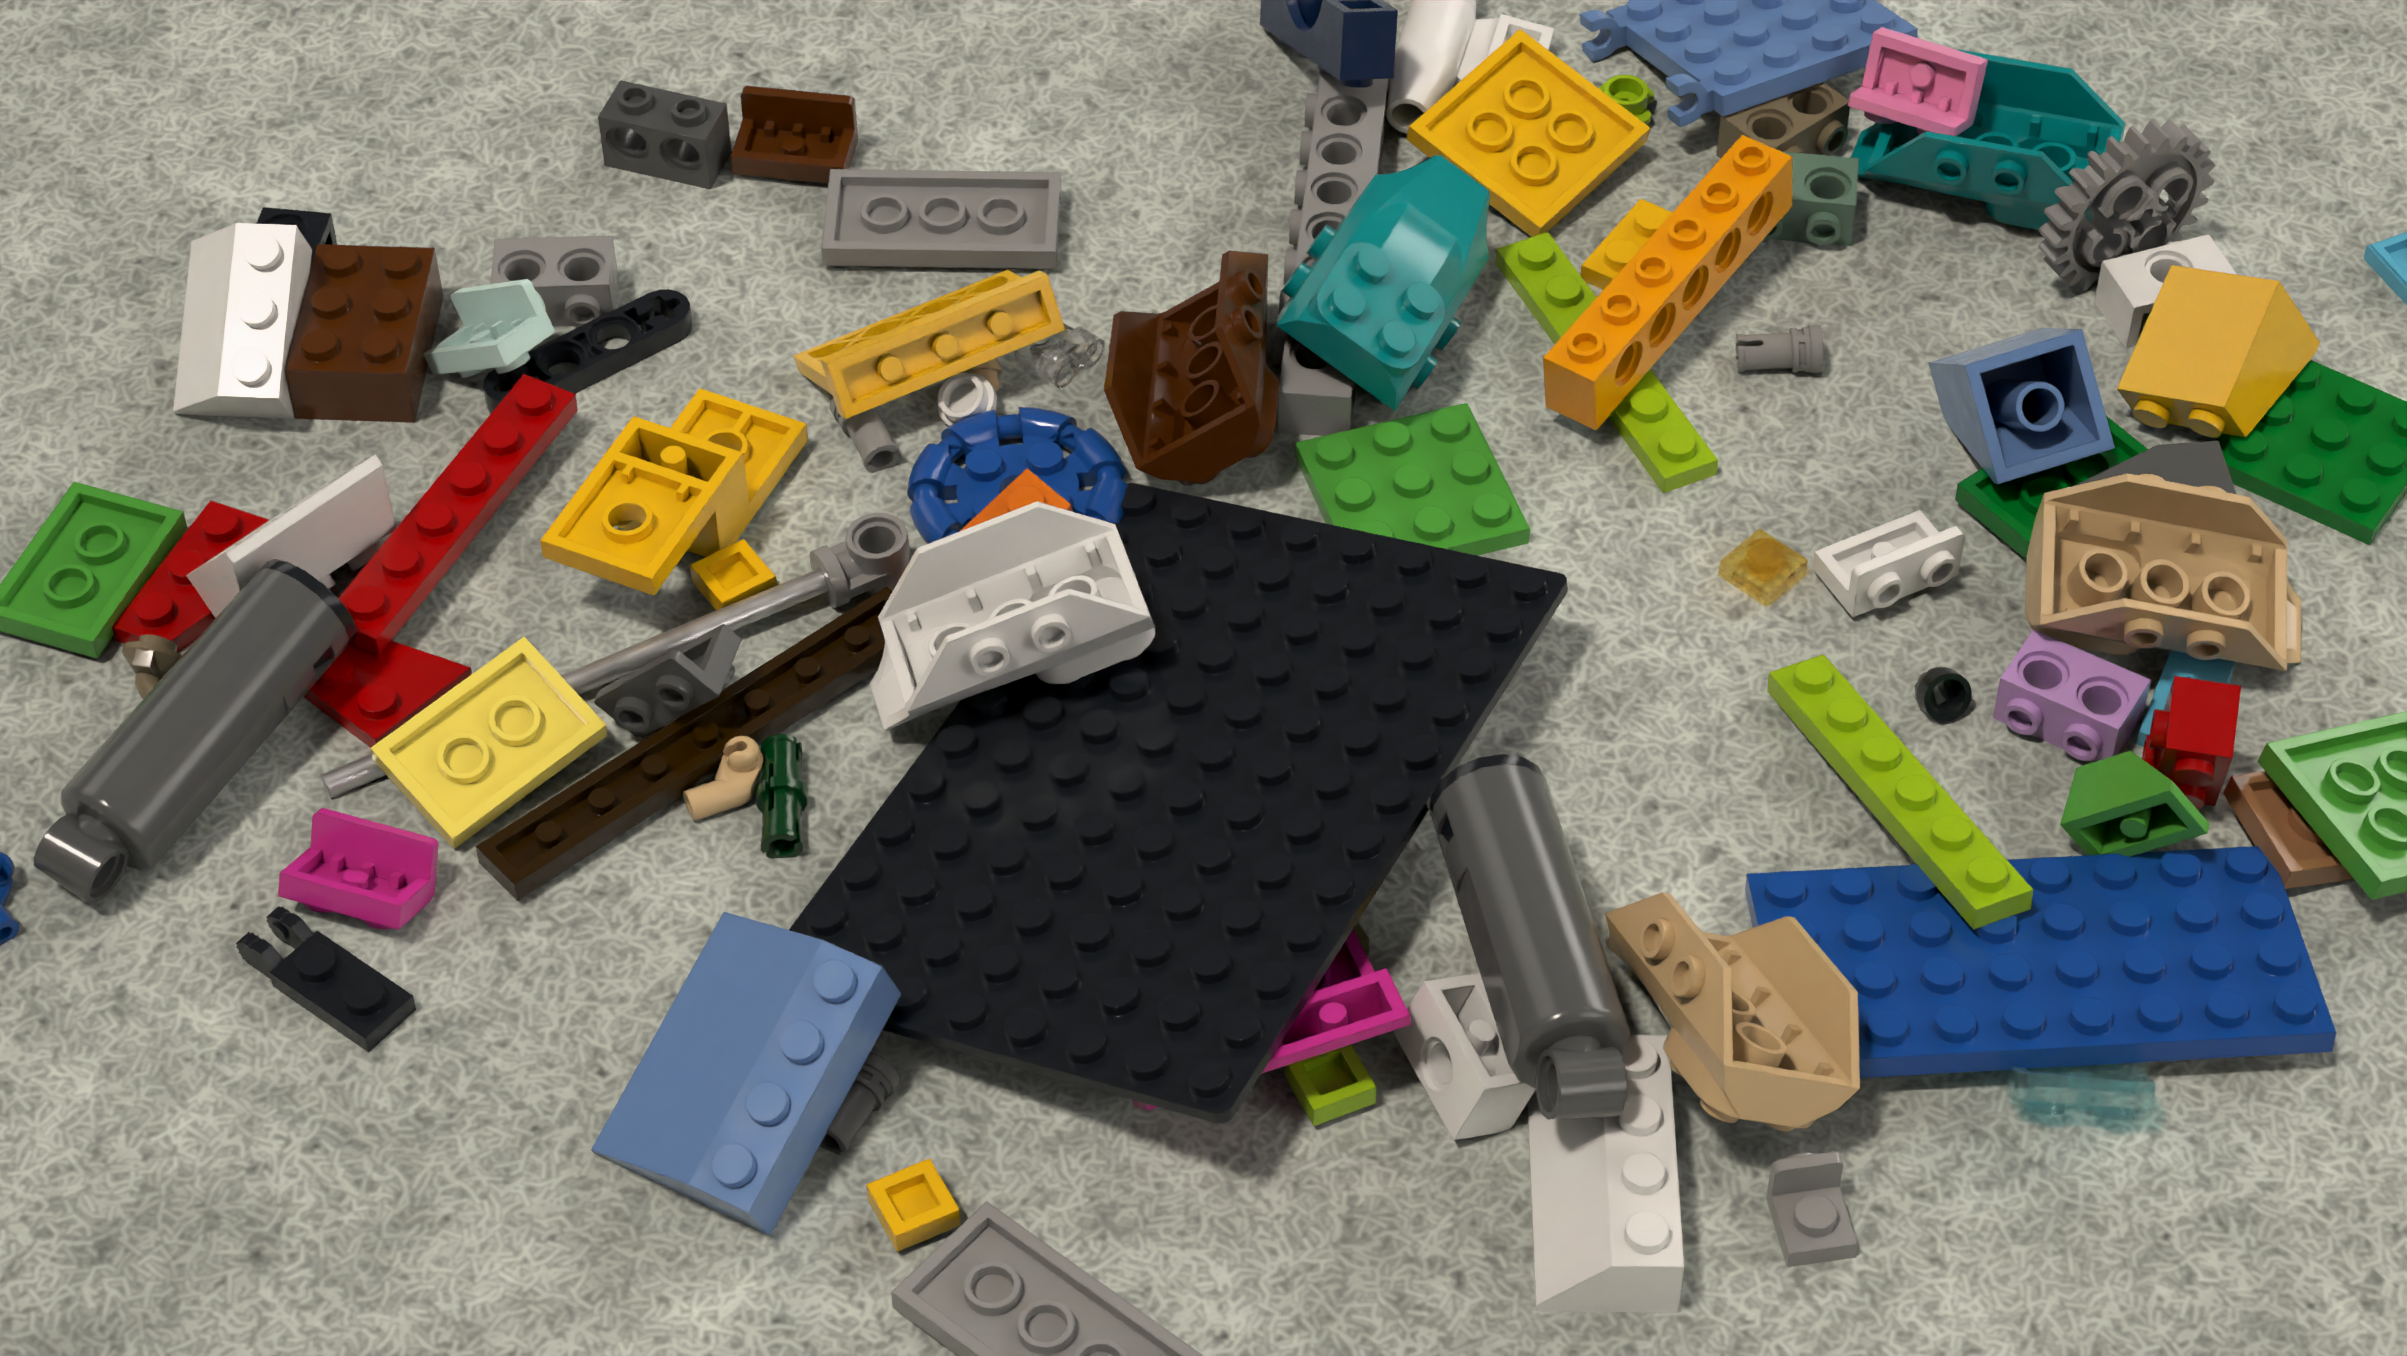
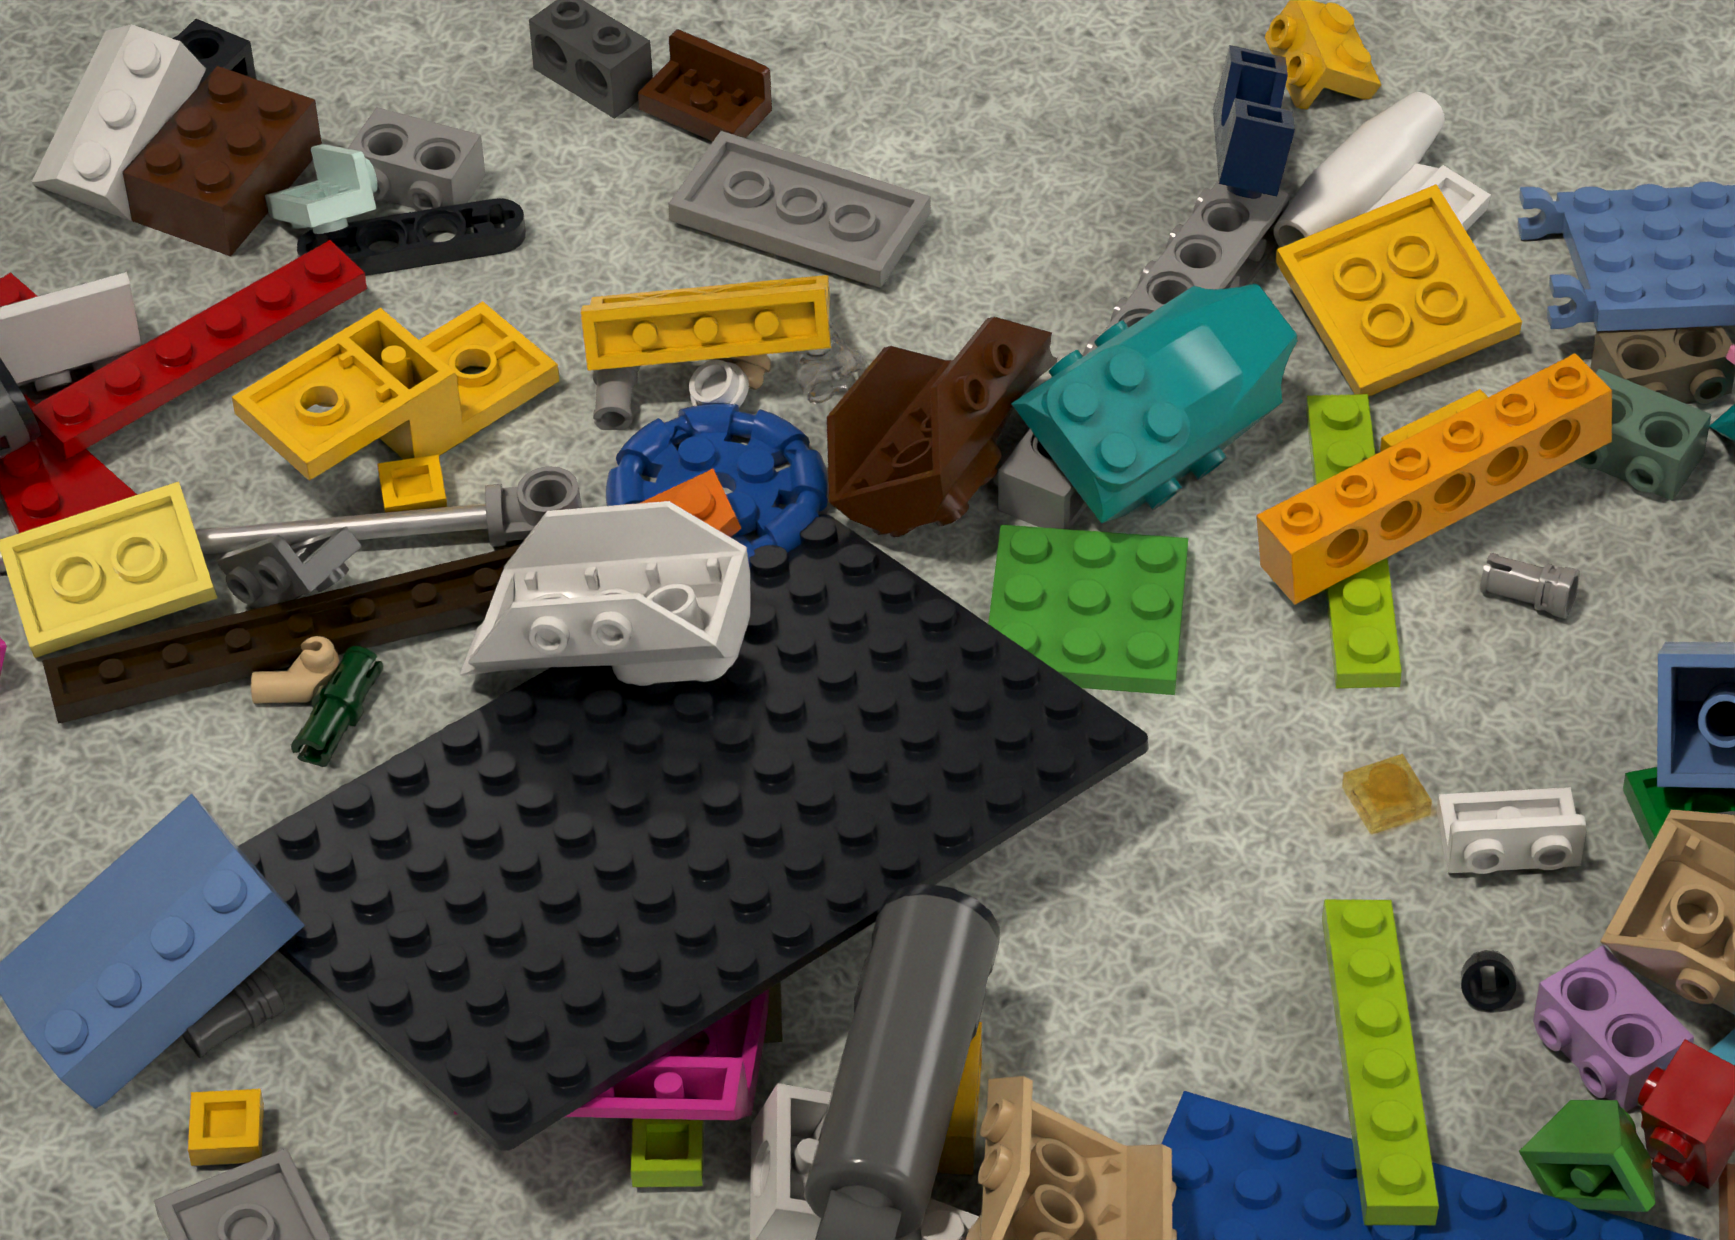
camera: 25 degrees right, 0 degrees up
(1631, 94) = (1526, 286): lime plate -> none

